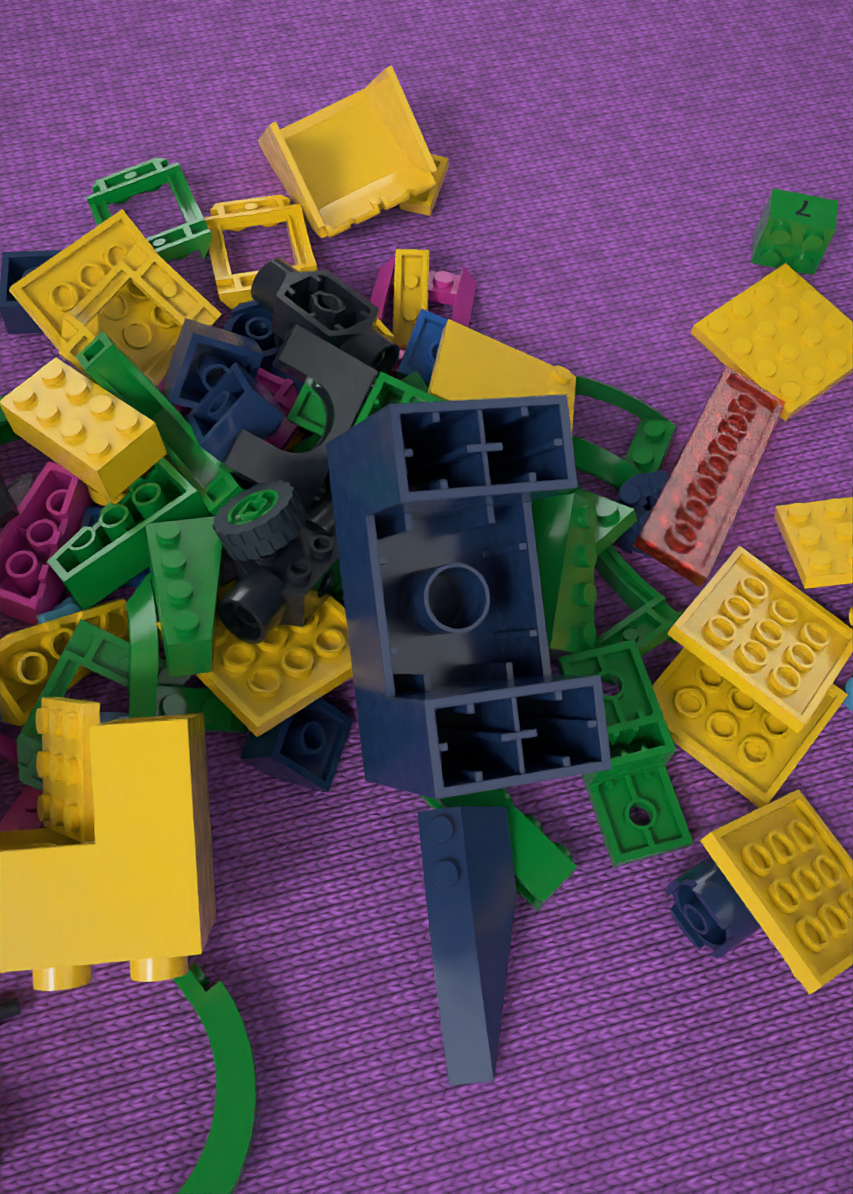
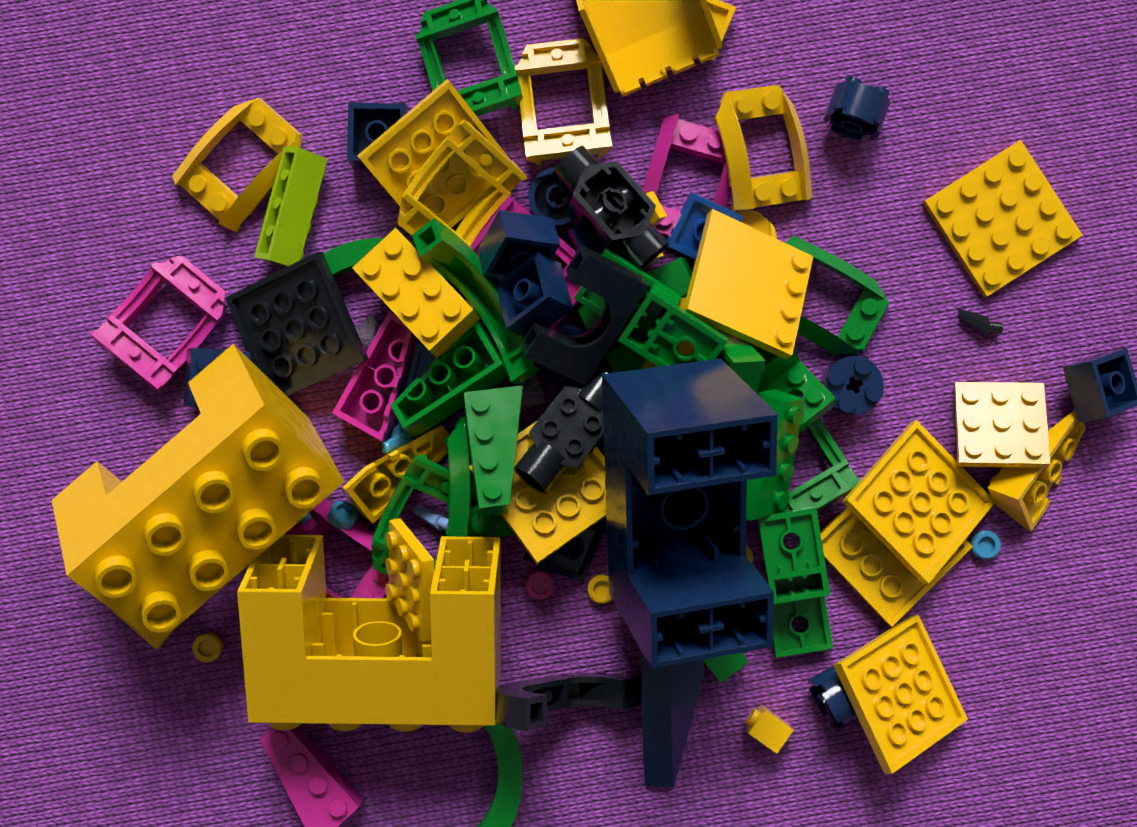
camera: 15 degrees right, 25 degrees up
(247, 922) = (526, 702): none -> black arch
(260, 520) = (549, 418): black wheel -> none
(267, 801) = (539, 585): none -> dark pink tile
(356, 798) = (599, 589): none -> yellow tile
(409, 292) = (685, 160): yellow tile -> none
(498, 320) = (767, 189): none -> yellow wedge
(598, 237) = (857, 109): none -> dark blue brick
(622, 969) = (768, 728): none -> yellow brick
(710, 477) = (906, 362): clear red plate -> none
(792, 445) = (980, 323): none -> black bar
(794, 231) = (1032, 116): green brick -> none

